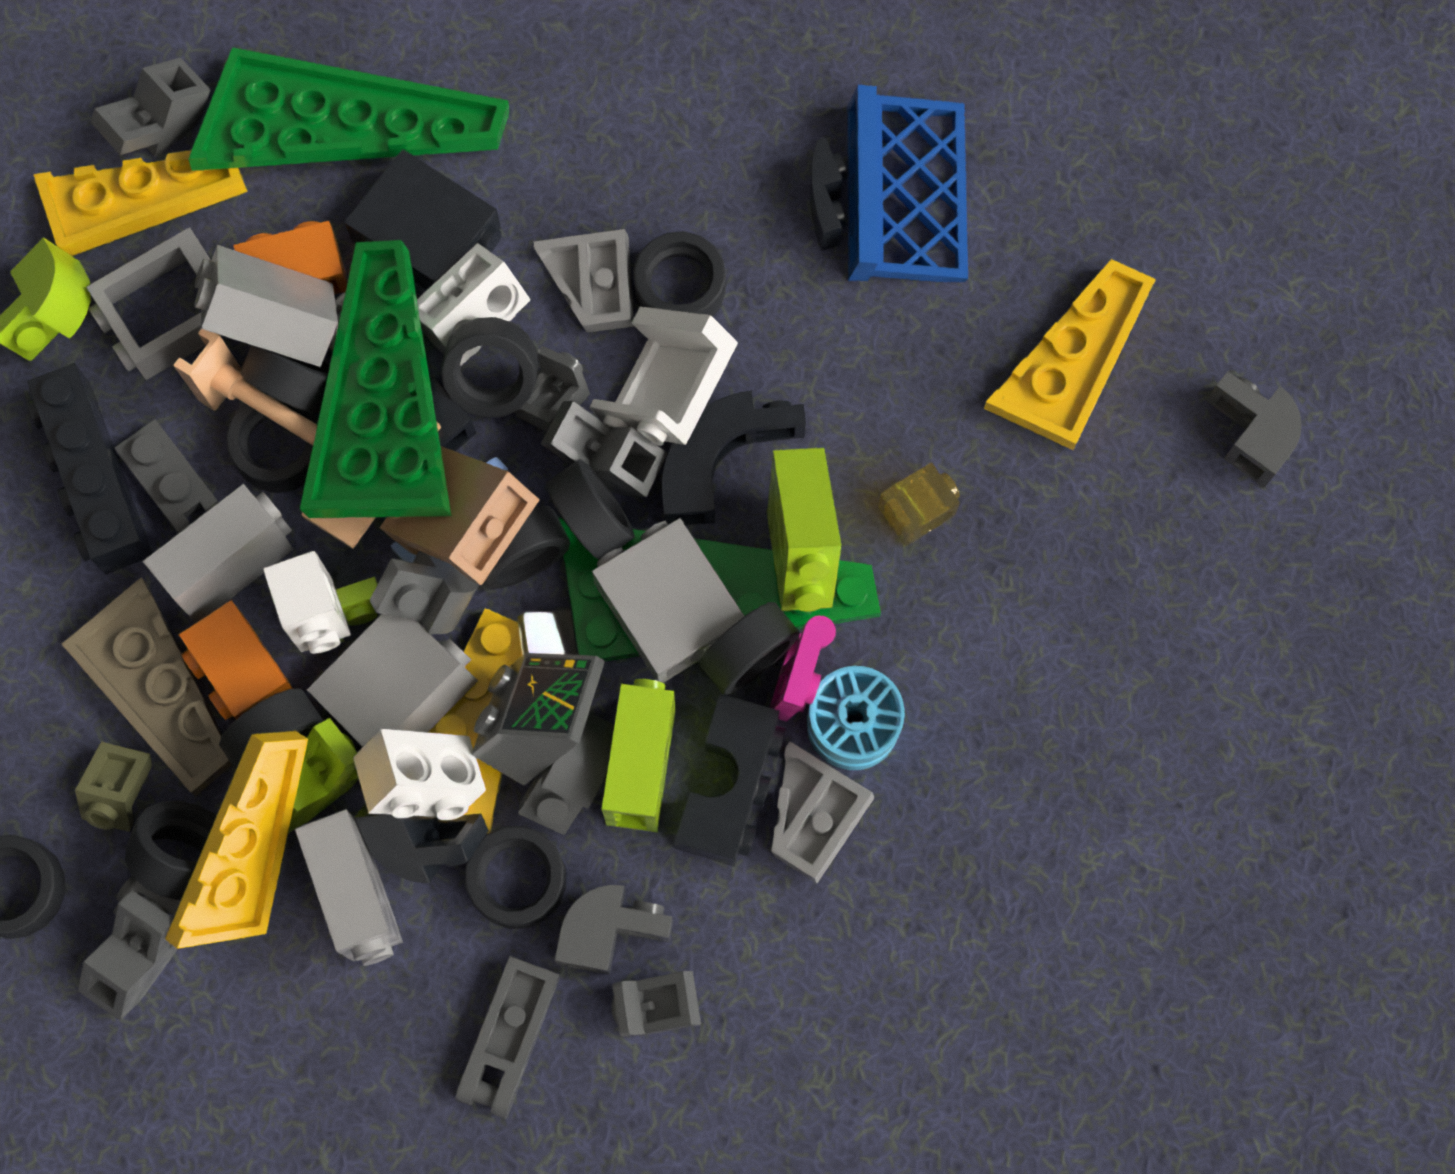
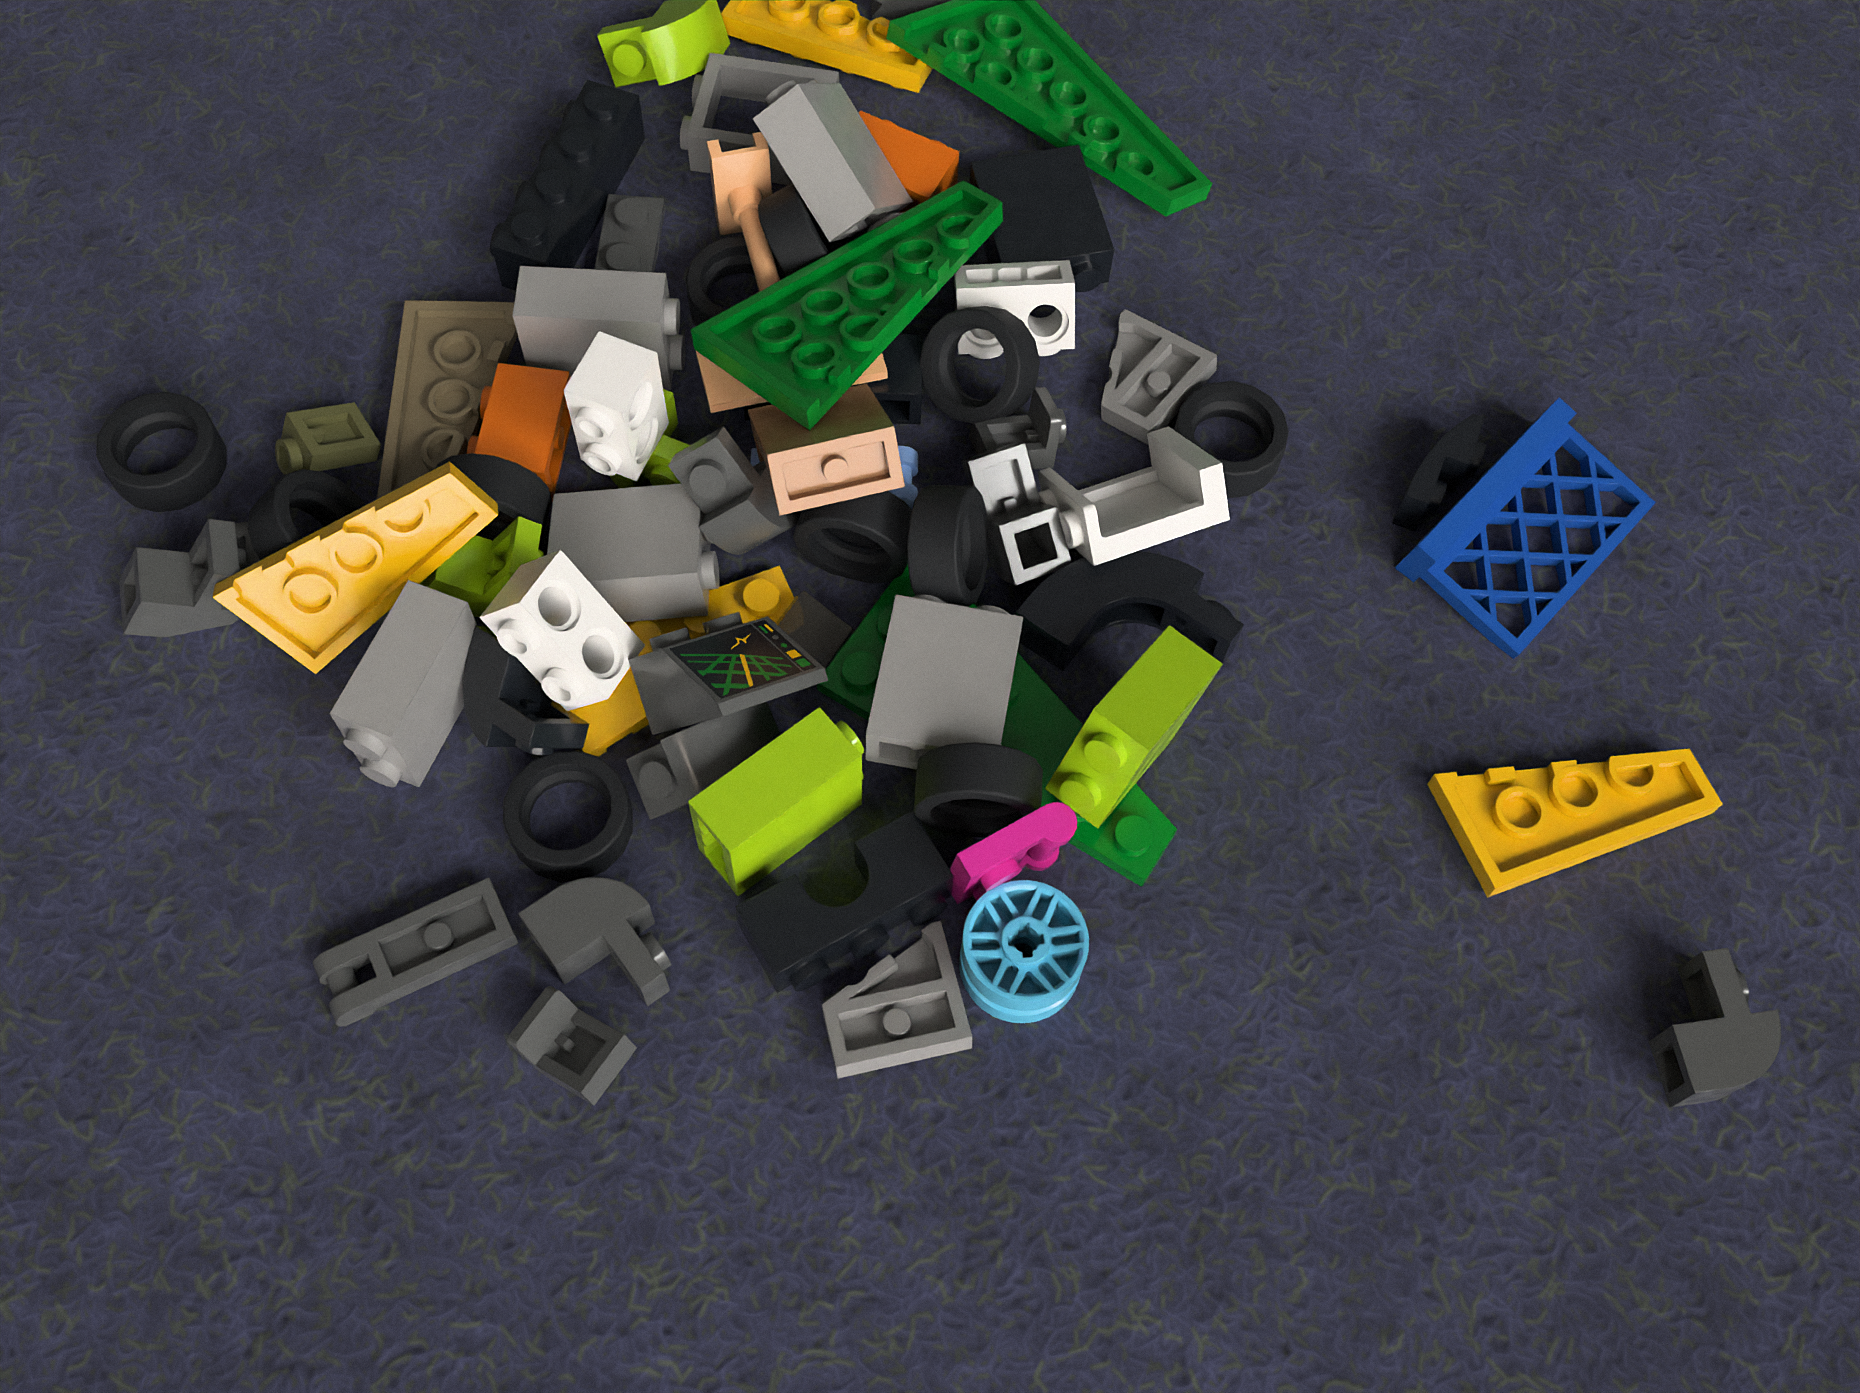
camera: 40 degrees right, 10 degrees down
(920, 503) = (1279, 812): clear yellow brick -> none

